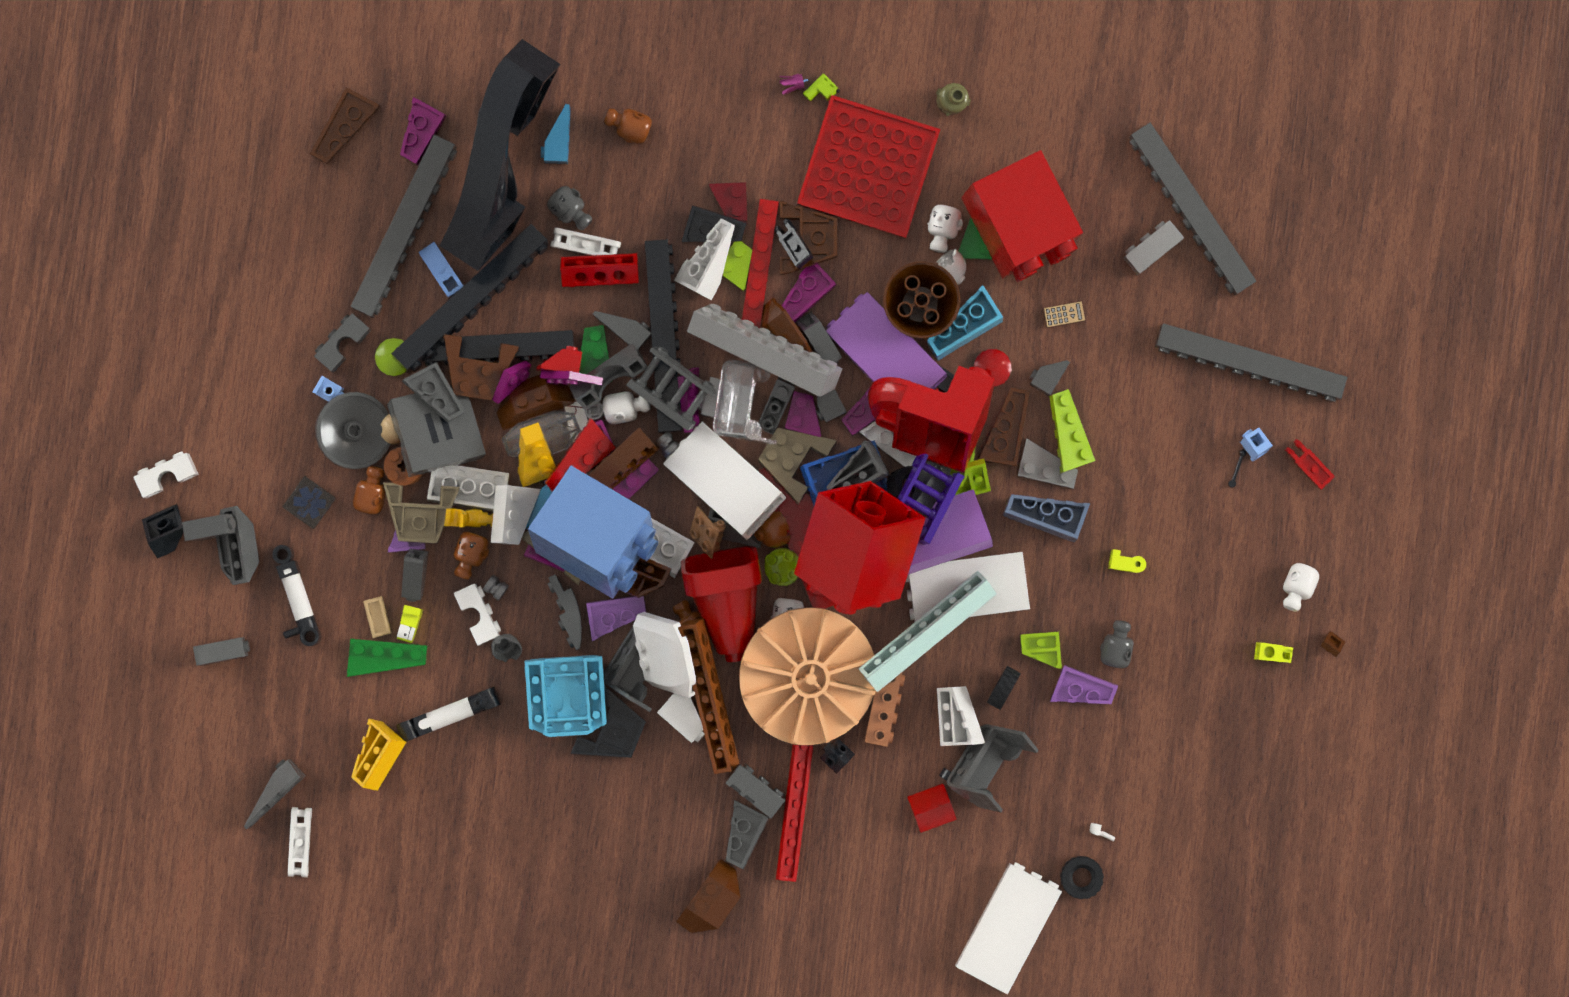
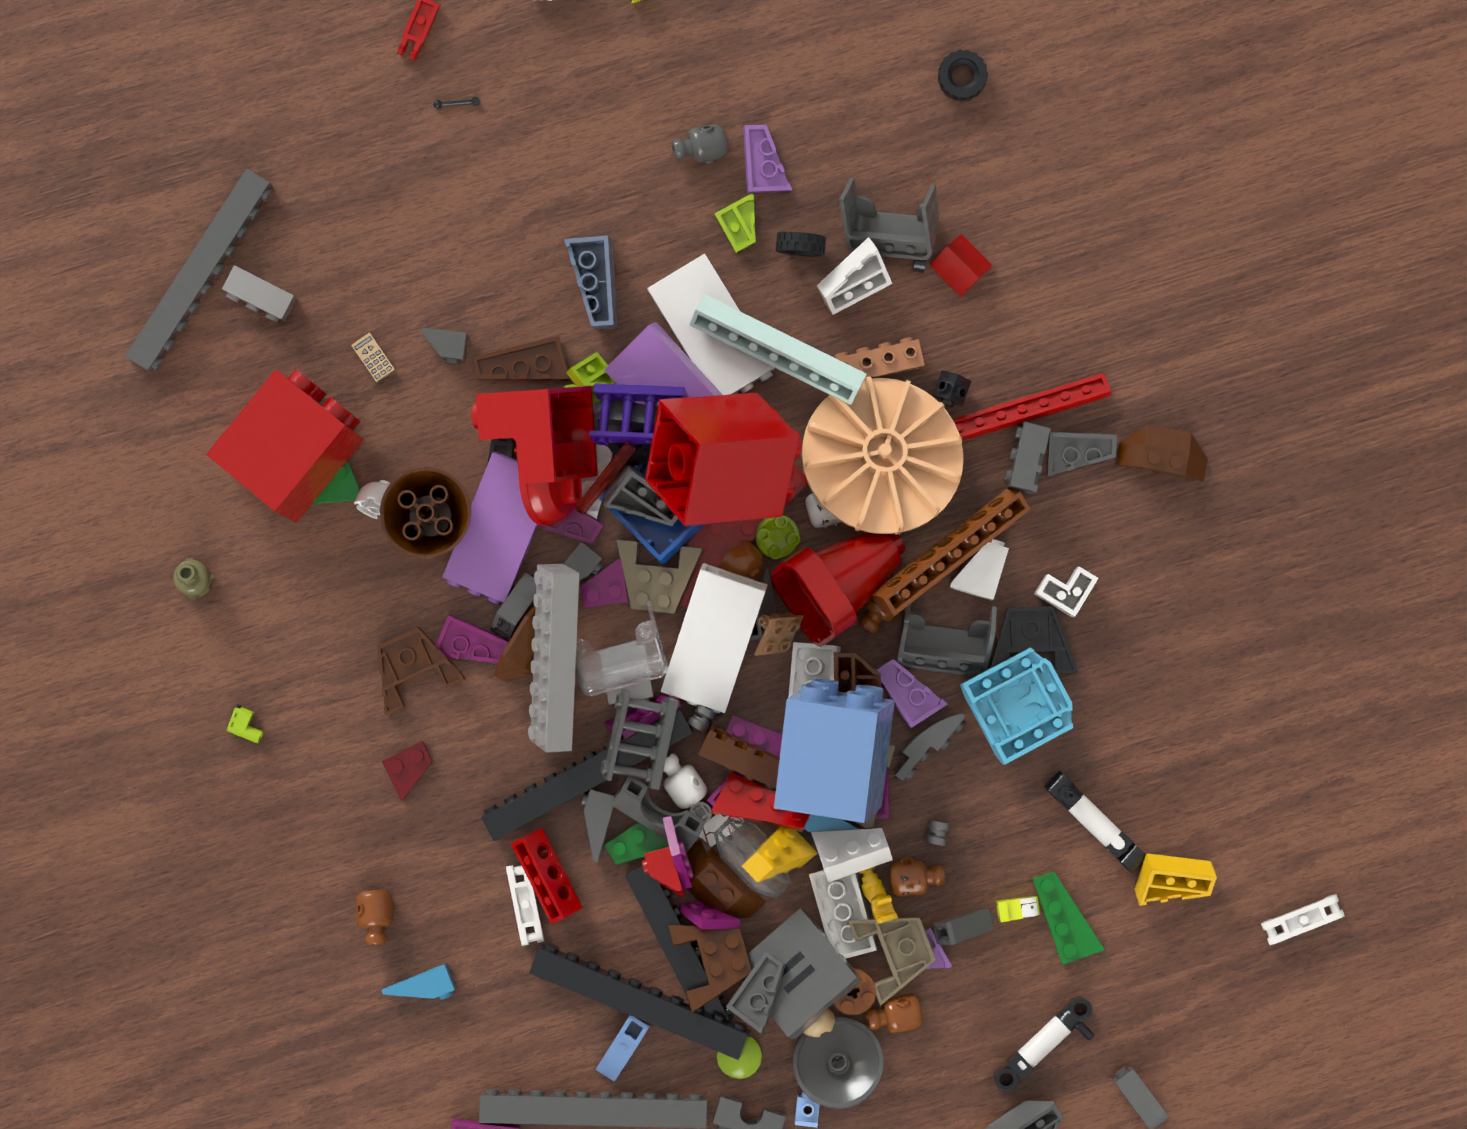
camera: 110 degrees left, 0 degrees up
(280, 783) = (1253, 969): dark grey wedge -> none
(309, 502) = (936, 1076): clear smoke tile -> none
(377, 617) = (1026, 946): tan tile -> none
(472, 598) = (960, 852): white arch -> none
(488, 202) = (528, 1028): black piece -> none
(506, 647) = (996, 792): dark grey hair -> none
(568, 207) = (493, 940): dark grey piece -> none
(632, 774) = (1067, 597): none -> white brick
(664, 654) = (929, 617): white wedge -> none
(702, 222) = (445, 776): black wing -> none
(706, 267) = (491, 762): white wedge -> none
(738, 264) = (475, 732): lime wing -> none
(760, 261) = (460, 707): red plate -> none
(776, 405) = (608, 620): dark grey slope -> none
(794, 244) = (426, 678): hinge -> none
(796, 80) = (246, 756): flat silver piece -> none
(868, 166) = (306, 636): red plate -> none
(887, 452) = (605, 478): none -> clear red axle
(944, 225) = (333, 527): white piece -> none
(973, 320) = (419, 449): medium azure wedge -> none
(995, 363) = (458, 407): red dish -> none
(1008, 927) = (1050, 128): white brick -> none
(1044, 467) = (545, 305): light grey wing -> none
(1071, 437) = (505, 288): lime wing -> none
(1096, 829) = (905, 83): white hand -> none
(1135, 564) = (607, 166): neon yellow leg -> none
(1251, 362) = (336, 137): dark grey brick -> none
(1255, 443) = (421, 94): light blue brick -> none

